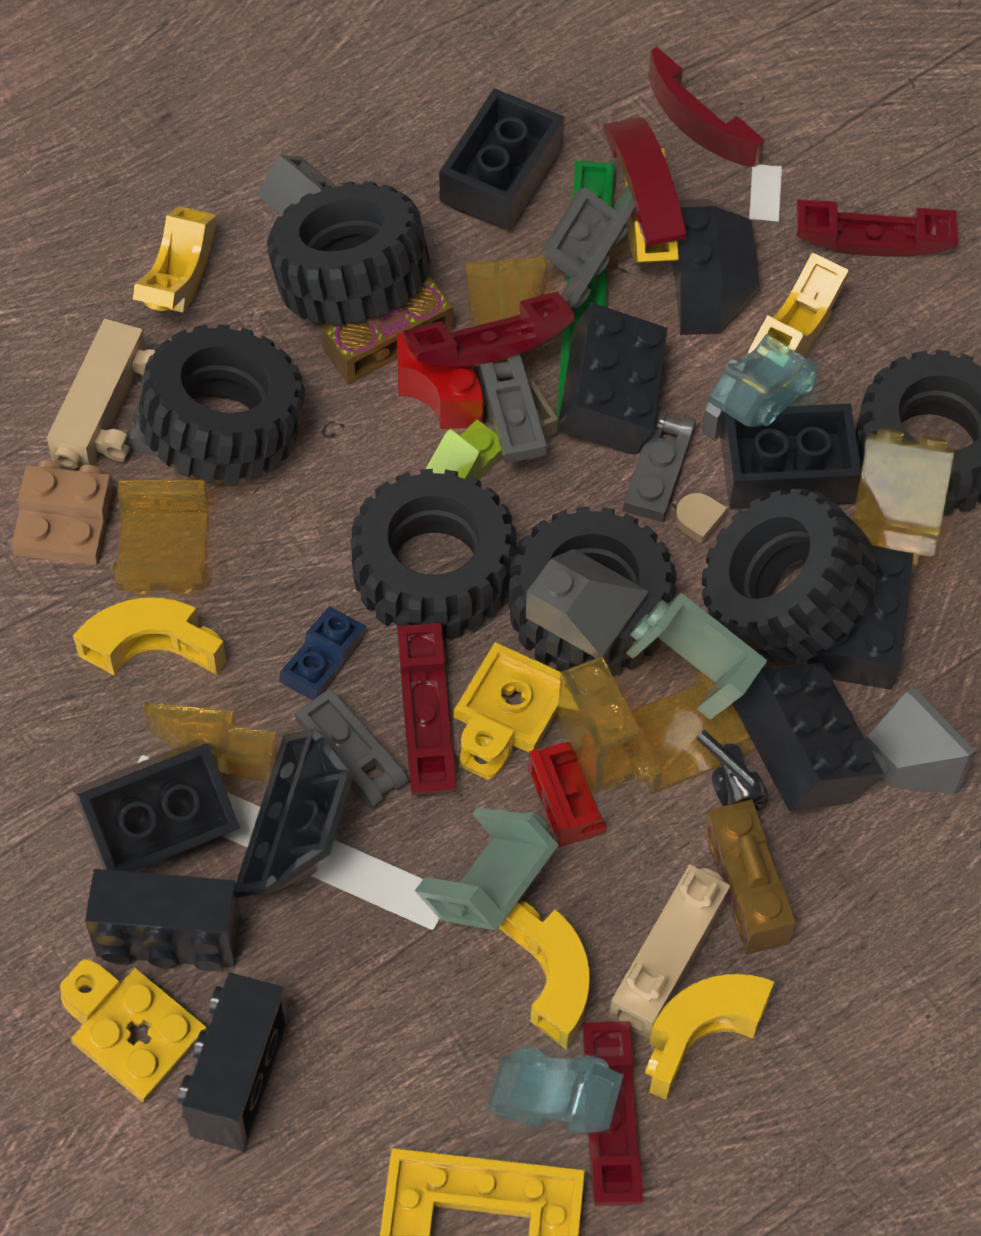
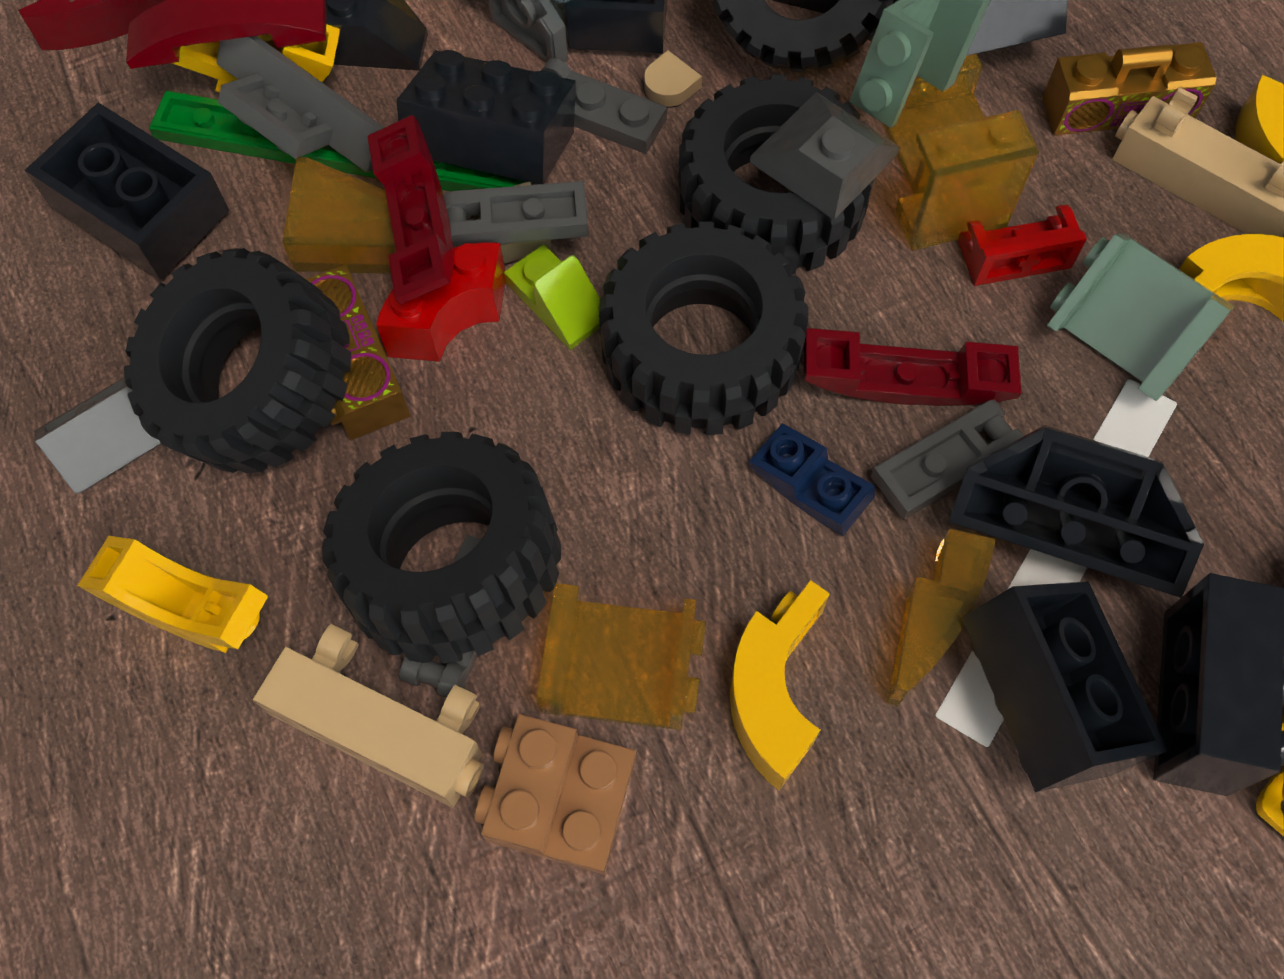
camera: 80 degrees left, 5 degrees up
(496, 725) = (930, 288): yellow plate -> none
(733, 780) = (1039, 85): black helmet -> none

